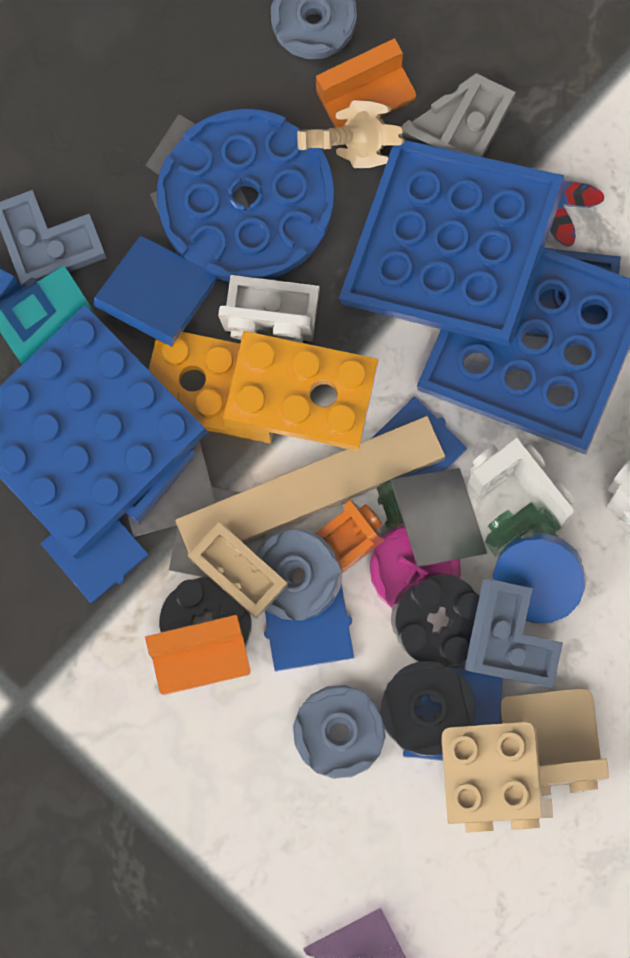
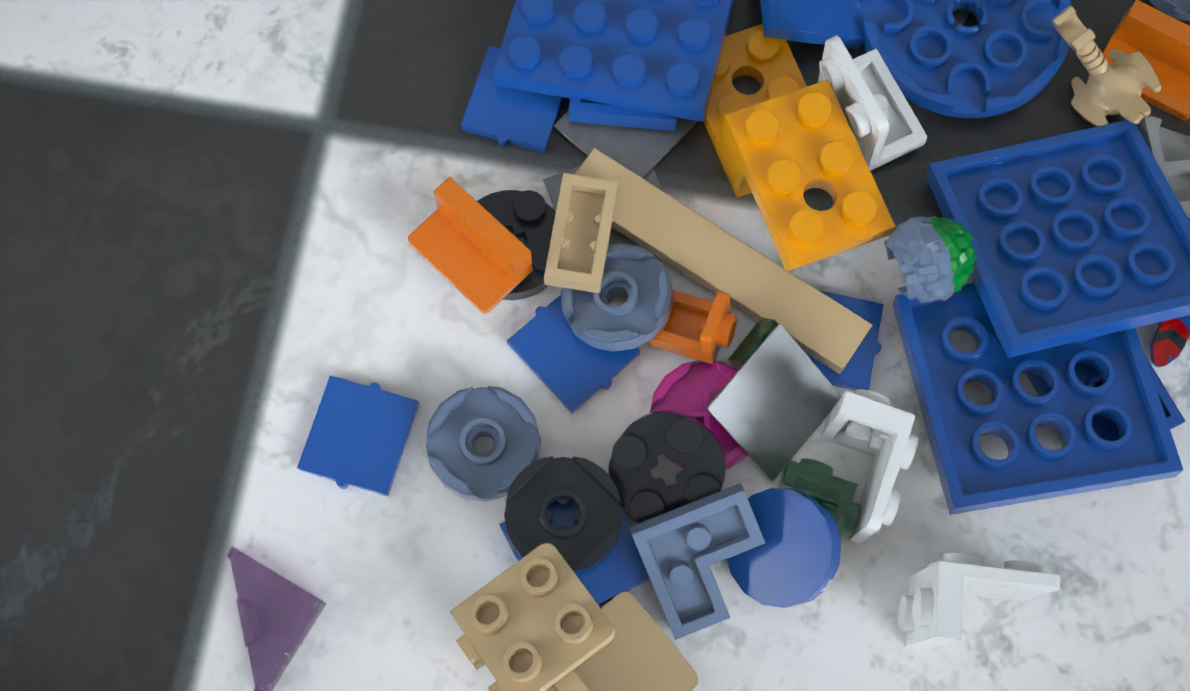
camera: 50 degrees right, 5 degrees down
(276, 815) = (358, 435): none -> blue piece
(412, 348) = (932, 257): none -> sand blue piece

